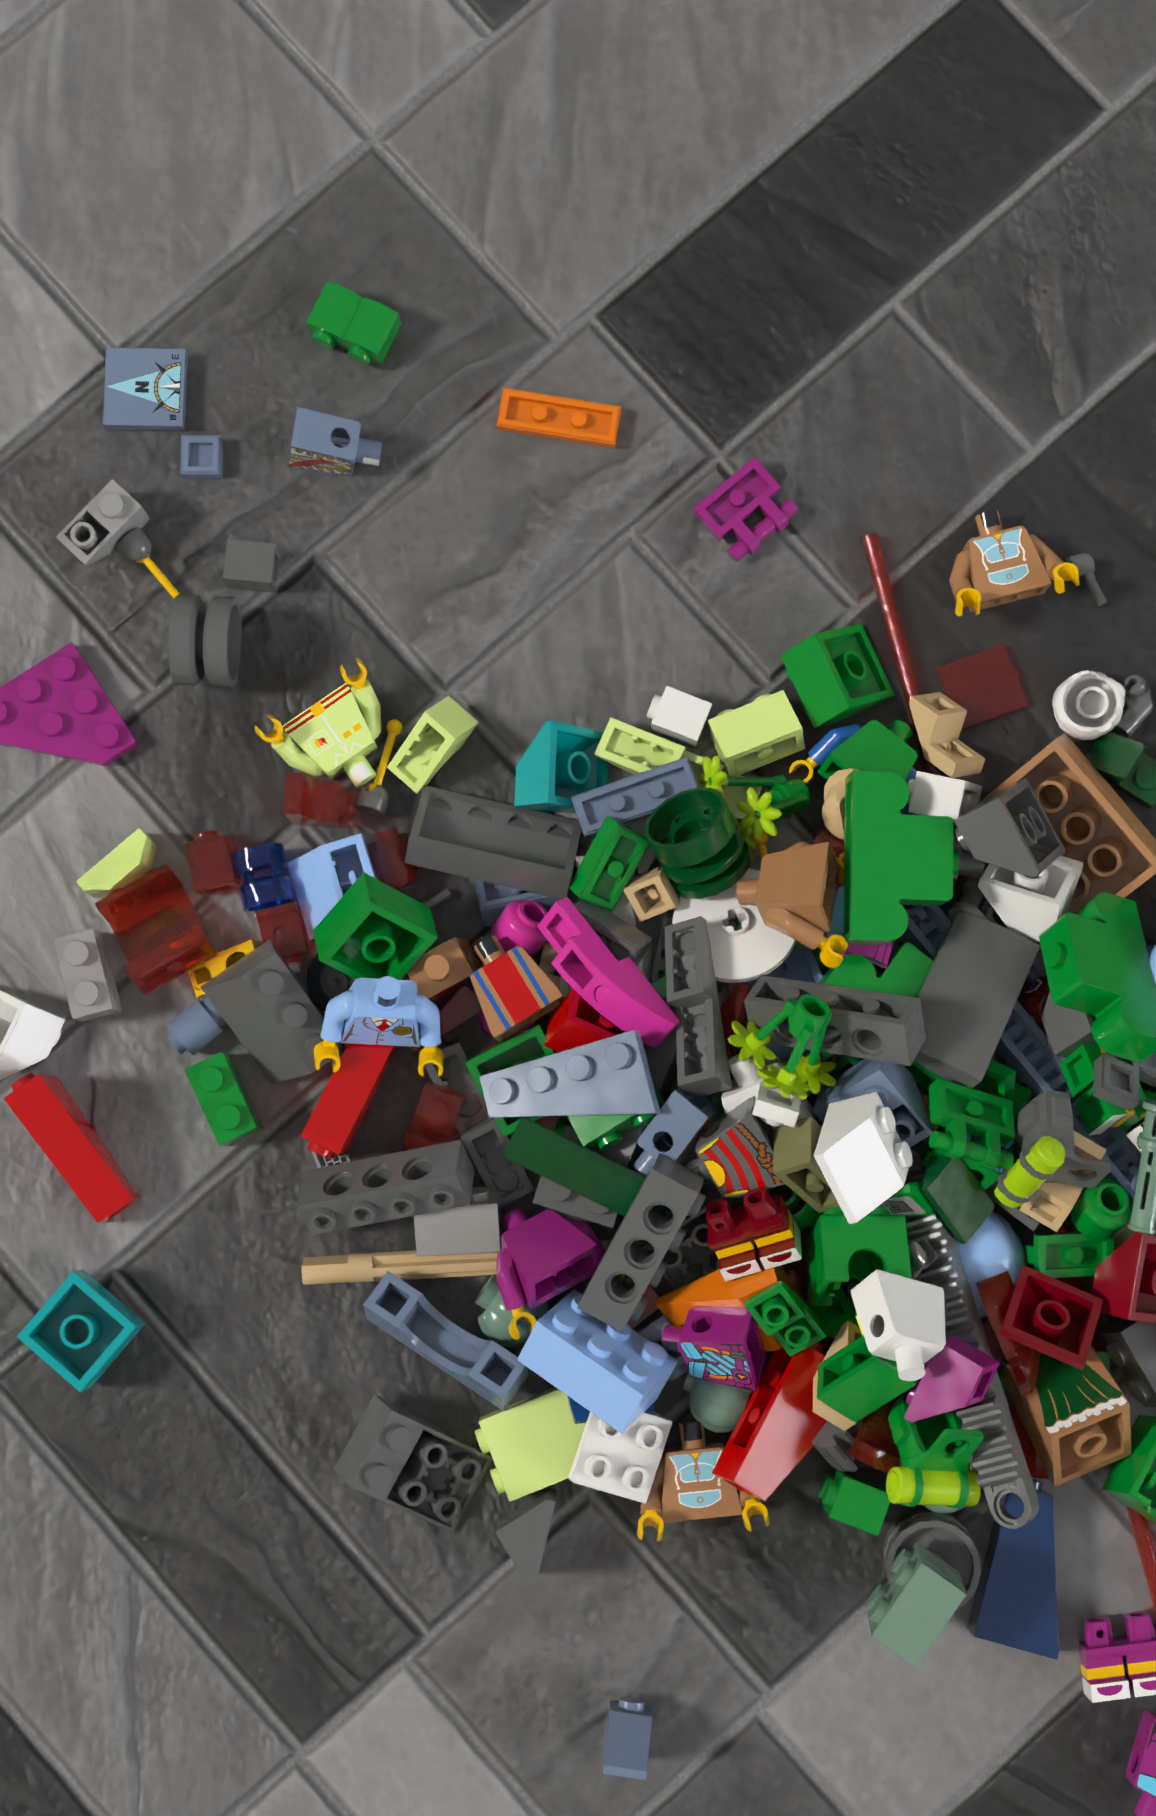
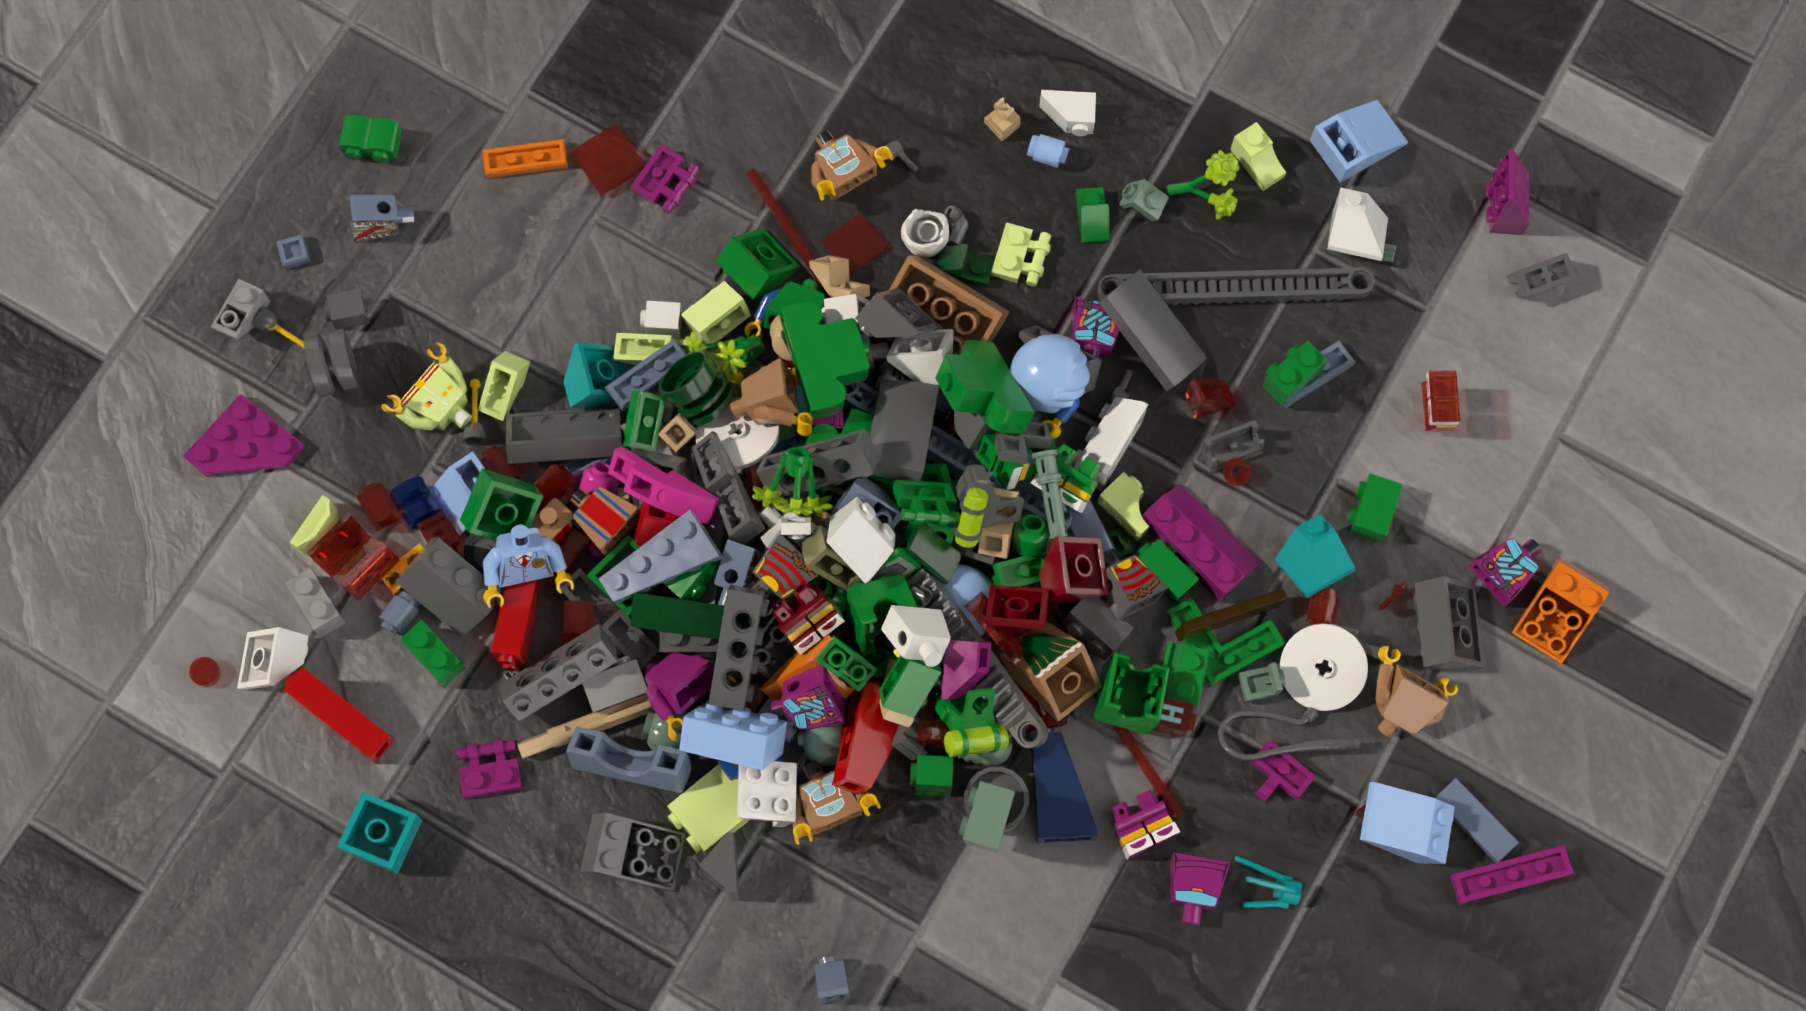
camera: 25 degrees left, 10 degrees down
(145, 389) = (242, 220): sand blue tile -> none
(254, 1294) = (490, 777): none -> magenta plate
(315, 801) = (436, 444): clear red arch -> none
(459, 914) = (554, 483): none -> clear red slope
(674, 456) = (608, 160): none -> clear red tile

